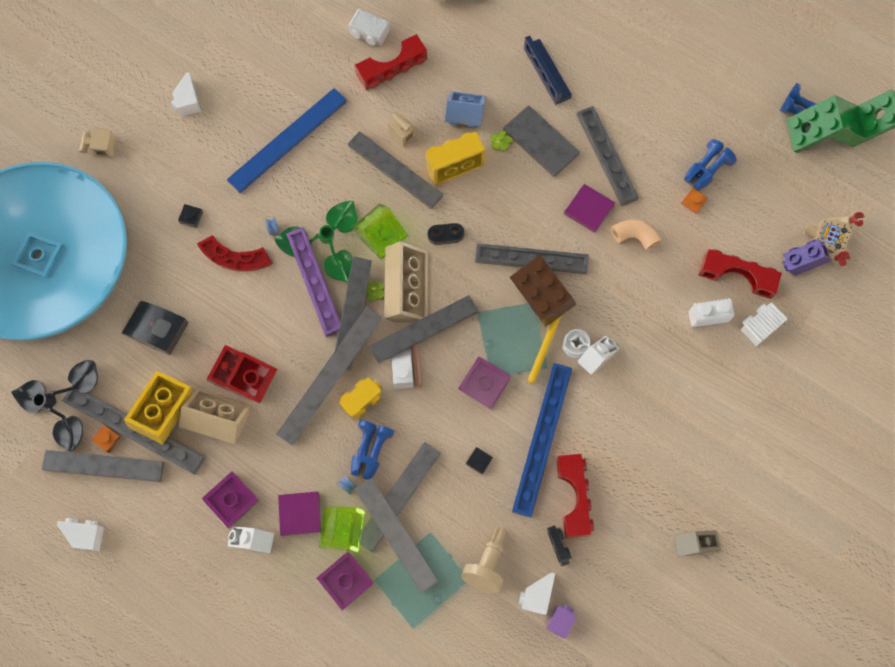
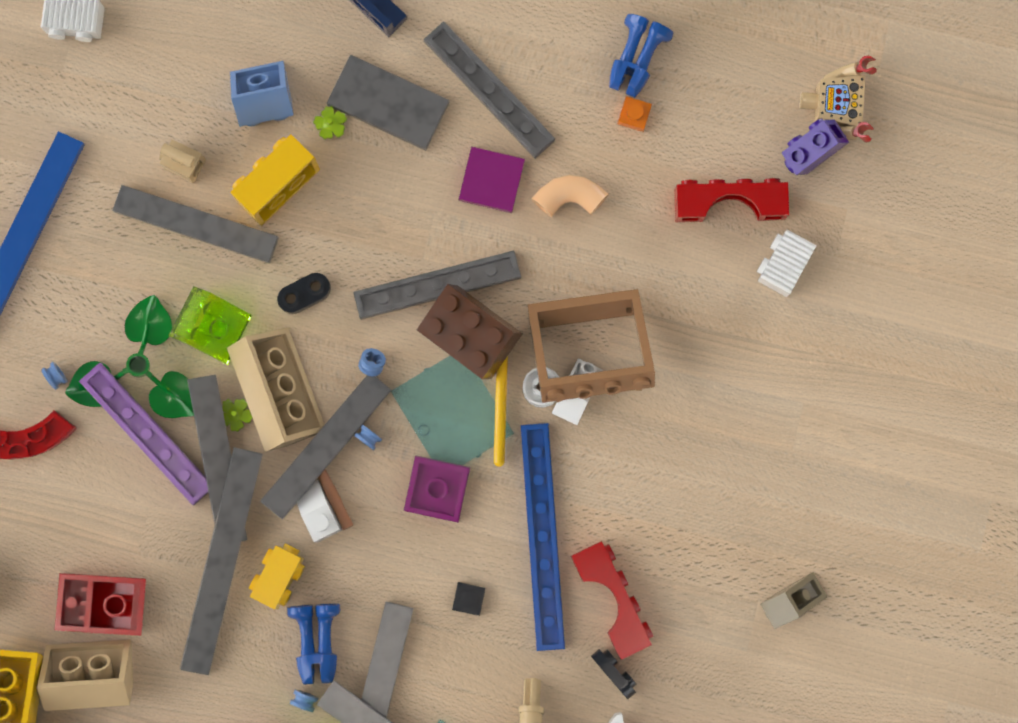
camera: 20 degrees left, 10 degrees up
(373, 72) = (107, 87): red arch -> none
(452, 334) = (368, 437): none -> medium blue bush
(472, 289) = (373, 356): none -> medium blue bush
(622, 306) = (584, 310): none -> medium nougat window
(711, 312) = (710, 274): white brick -> none

